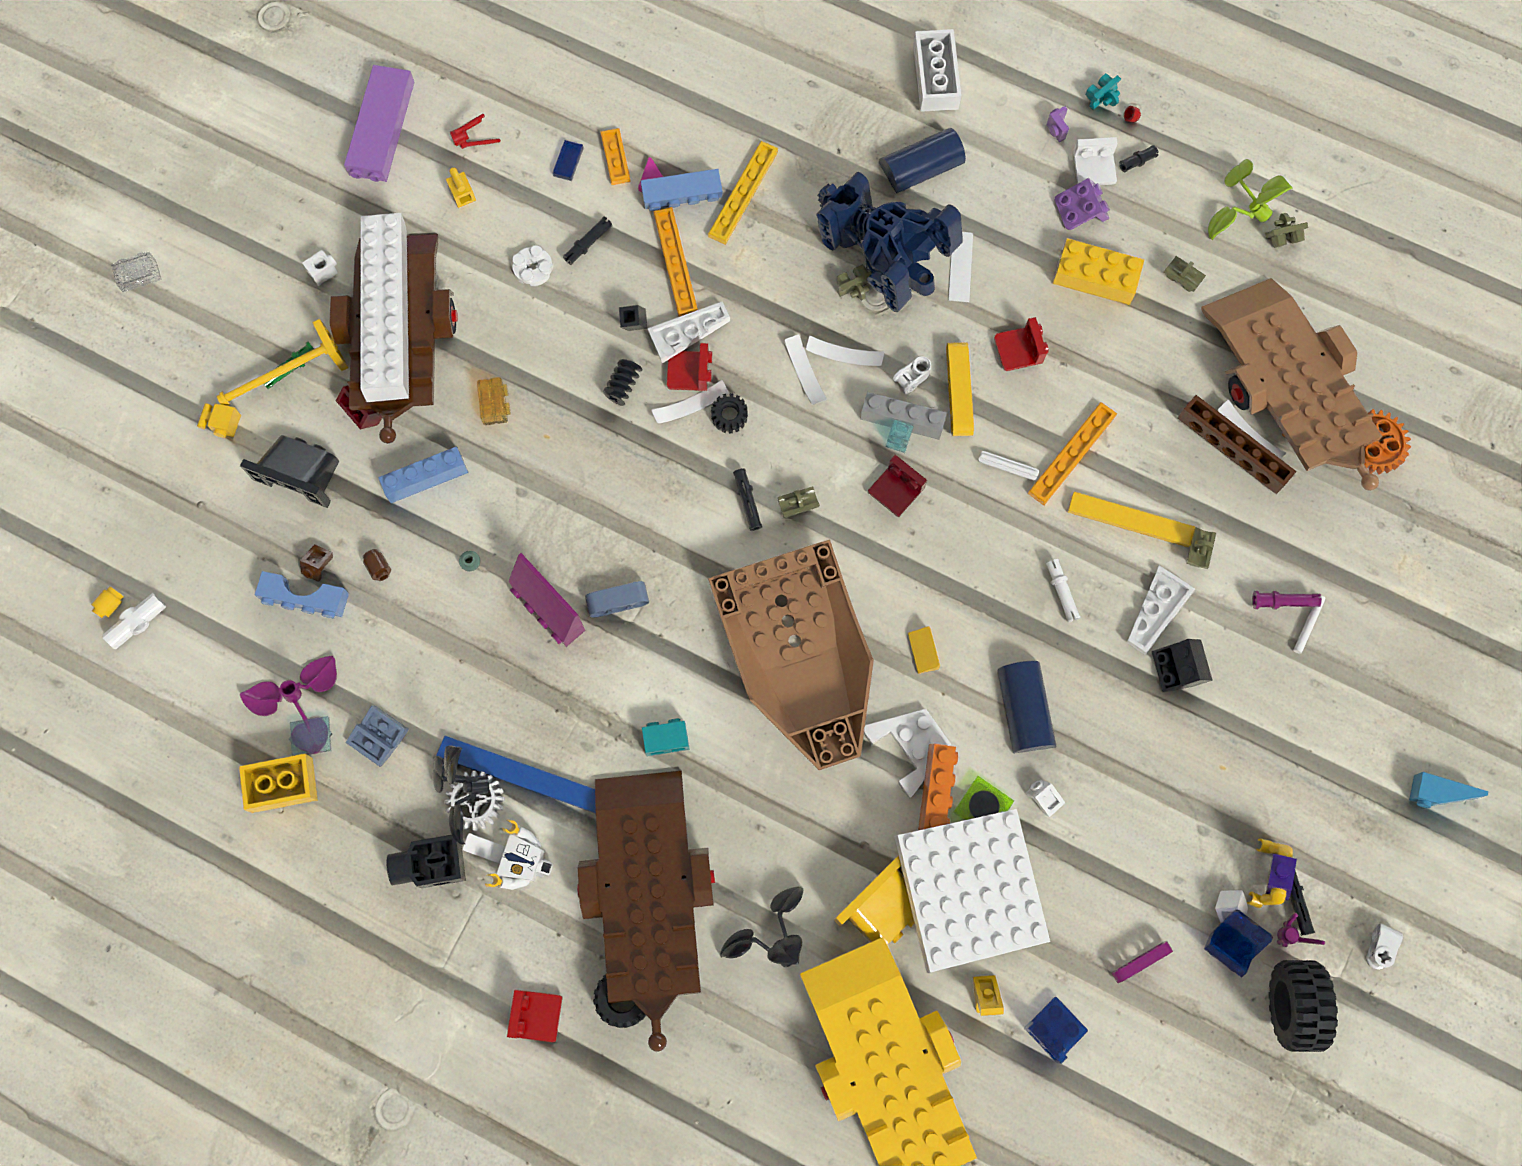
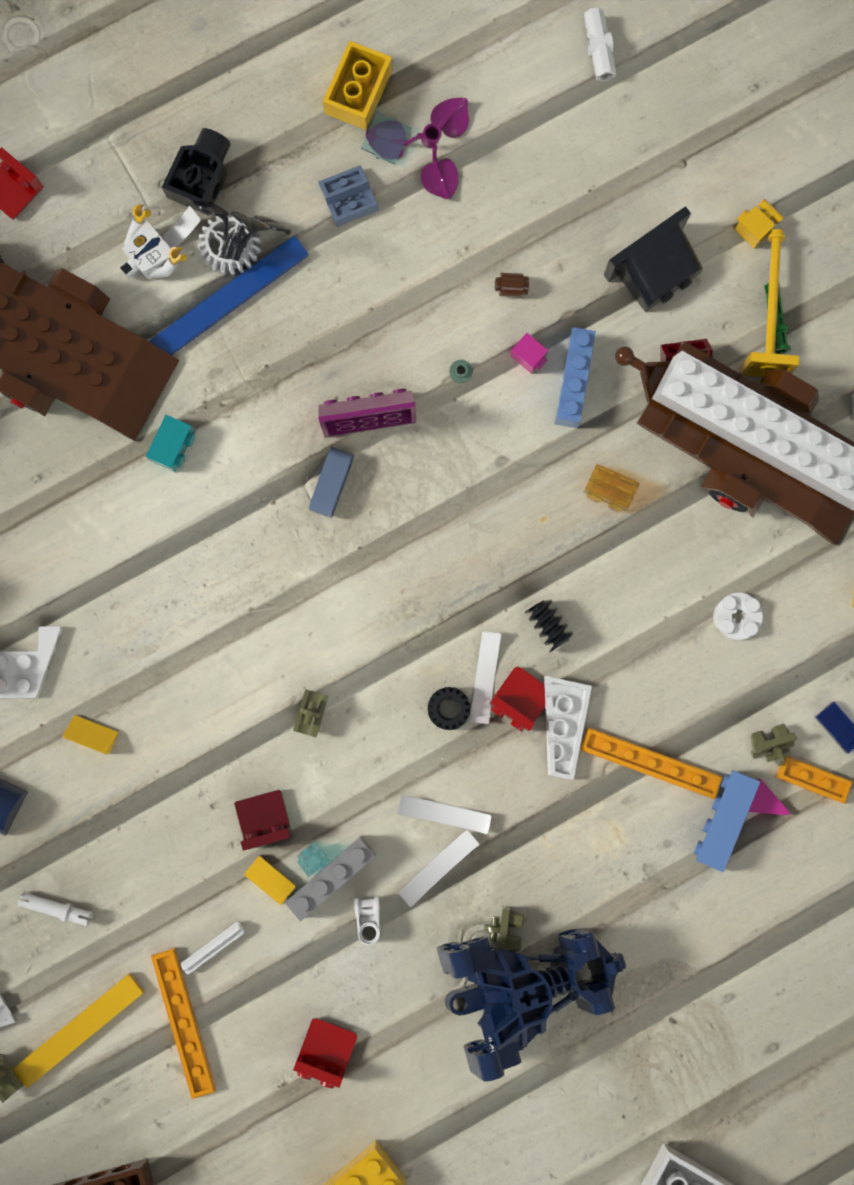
camera: 125 degrees right, 10 degrees up
(107, 602) = (633, 30): yellow brick -> none
(314, 562) = (552, 232): reddish brown bracket -> none
(326, 600) = (546, 183): medium blue arch -> none
(424, 519) = (529, 353): none -> dark pink brick
(581, 246) = (731, 688): black pin -> none
(600, 189) = (782, 740): none -> olive hips
(633, 318) = (610, 677): black brick -> none
(741, 477) = (346, 667): black pin -> none
(743, 192) = (687, 886): yellow tile -> none
(806, 691) = (123, 606): medium nougat piece -> none
(923, 159) = (602, 1104): dark blue brick -> none
(934, 458) = (270, 880): none -> yellow tile
(959, 389) = (323, 956): yellow beam -> none
(961, 270) = (451, 1053): white sticker -> none

